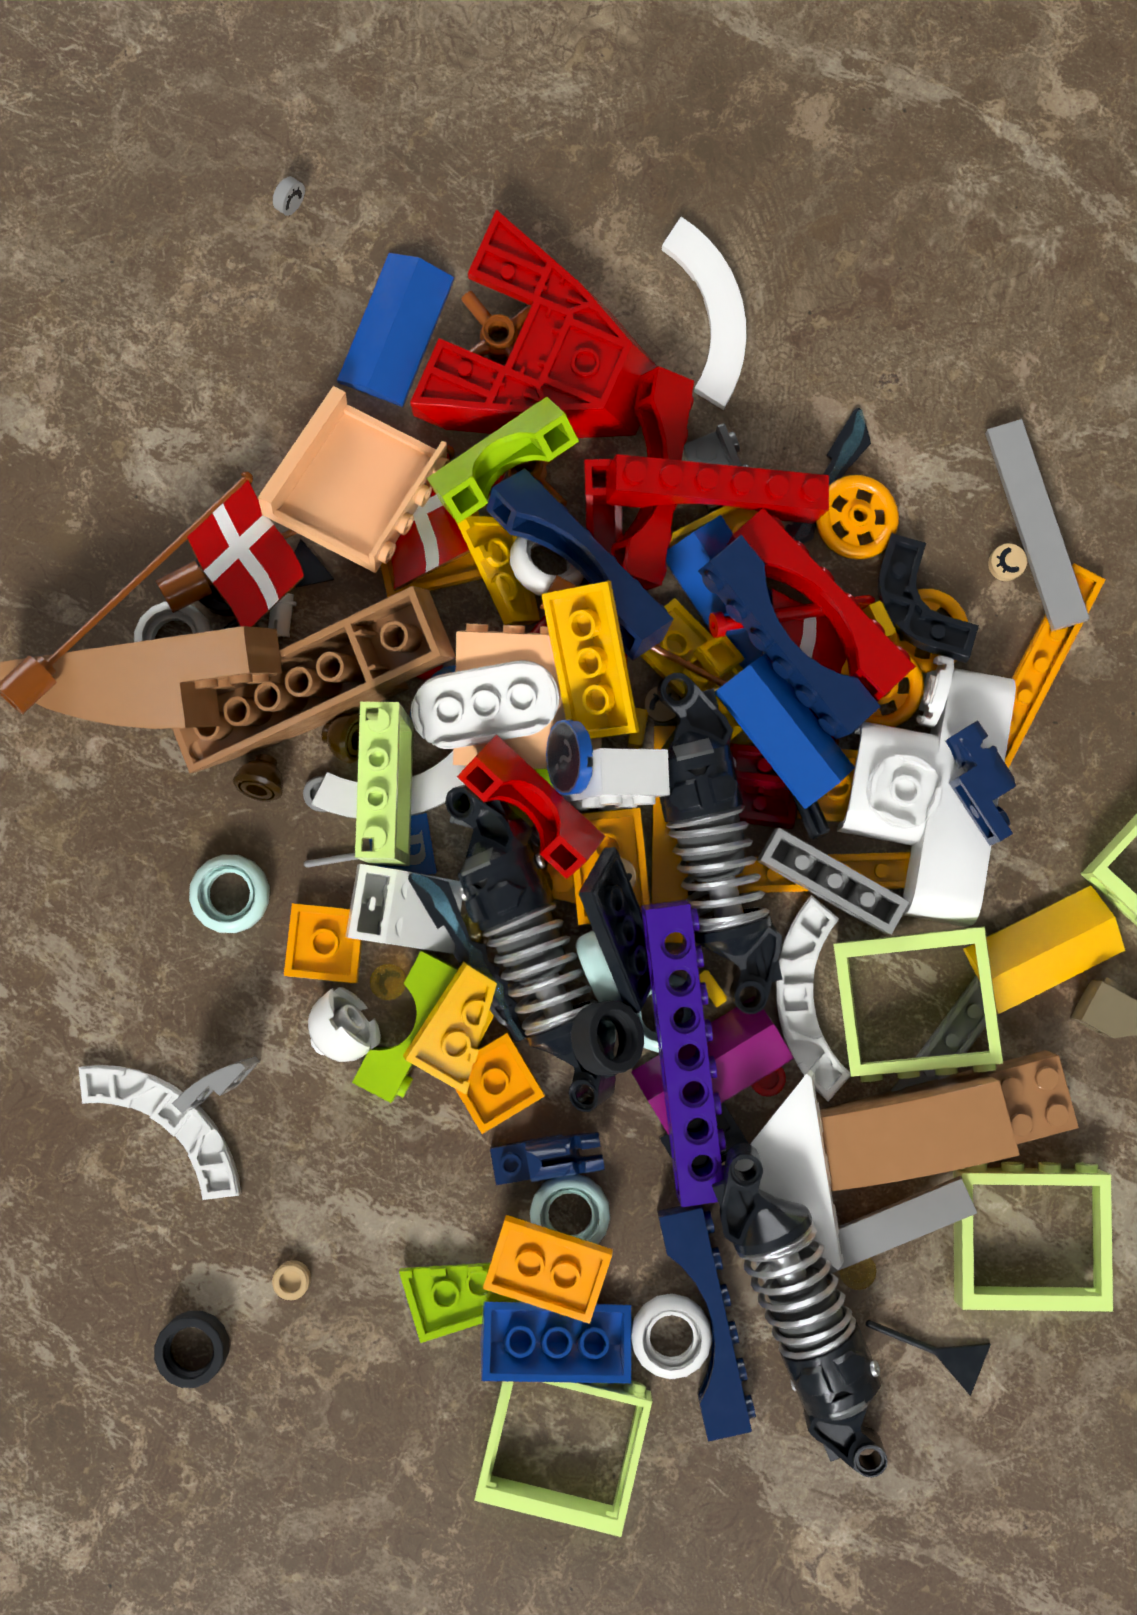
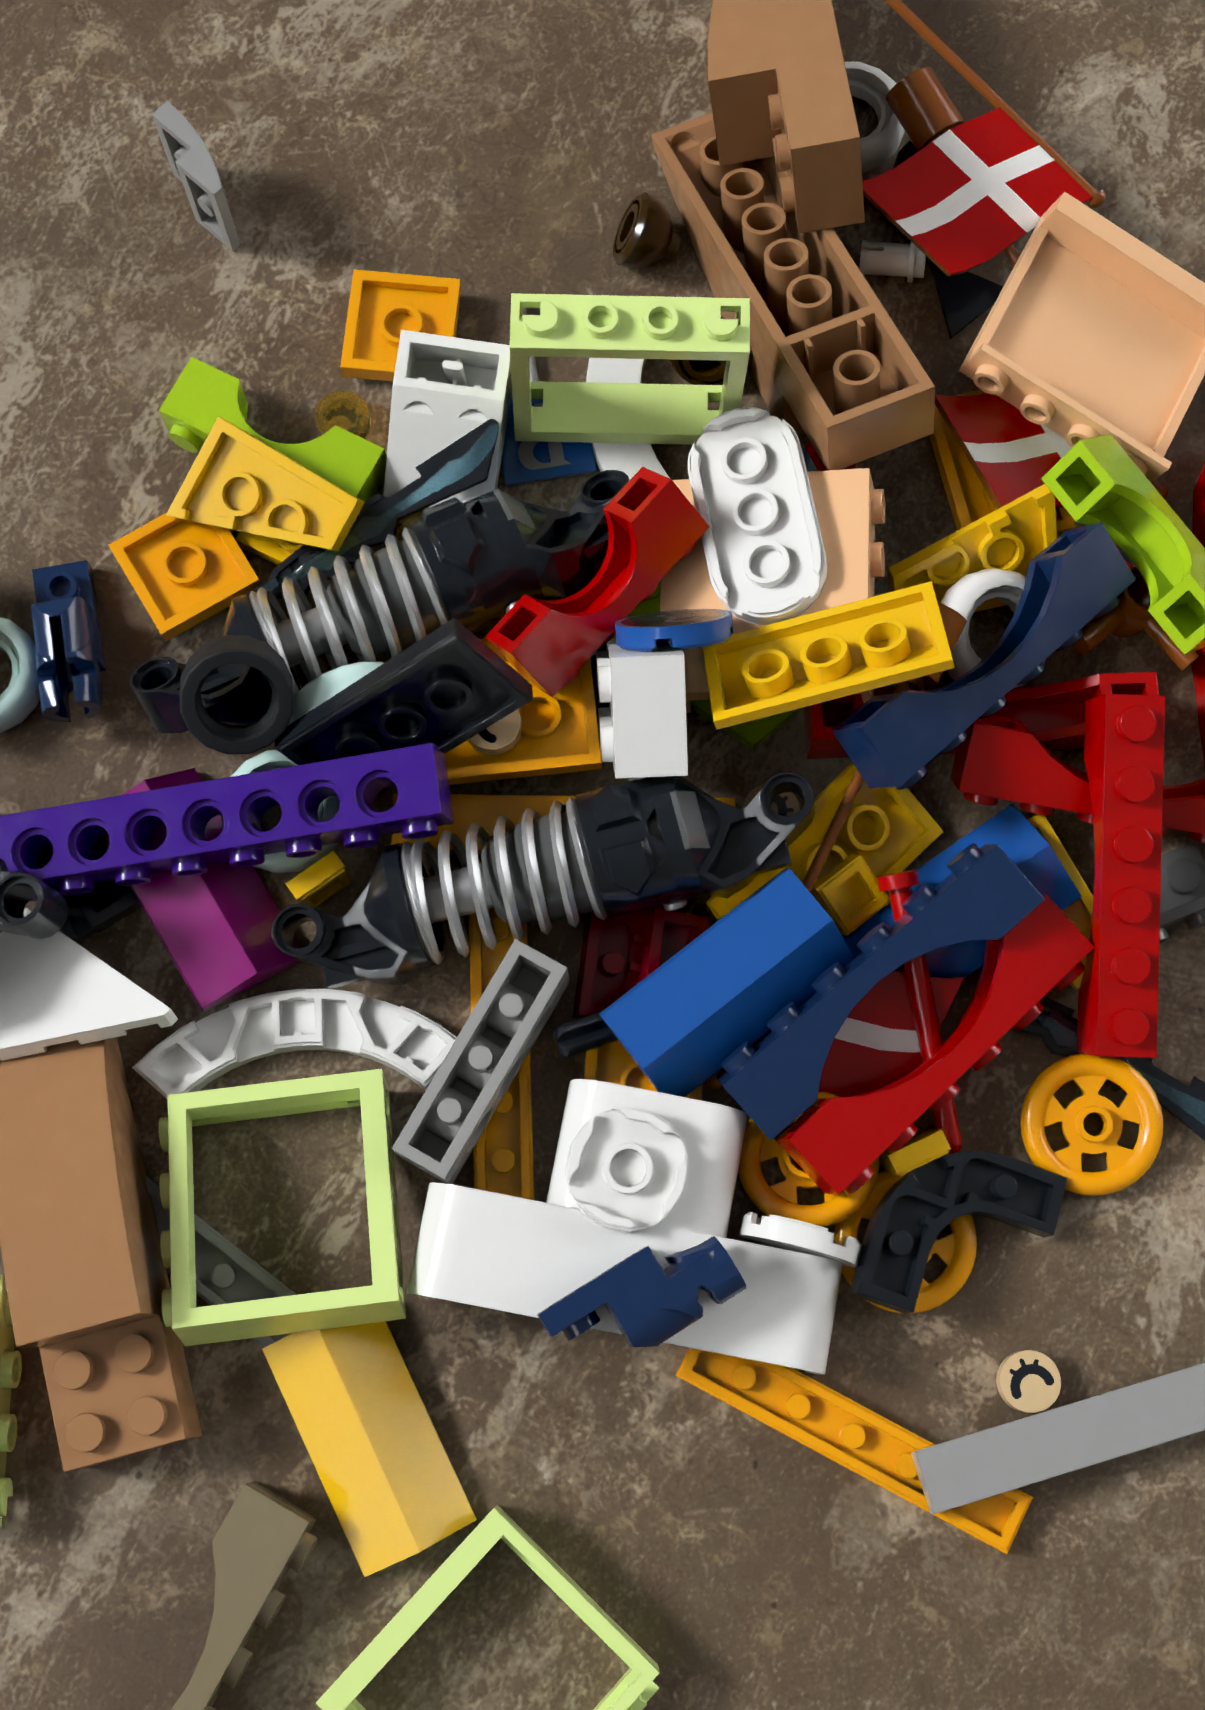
camera: 85 degrees right, 10 degrees down
(193, 1128) = (141, 164): white tile -> none
(200, 893) = (475, 160): light aqua wheel -> none
(340, 1027) = (276, 347): white cylinder -> none
(636, 739) = (730, 770): yellow tile -> none
(771, 1084) = (166, 981): red tile -> none

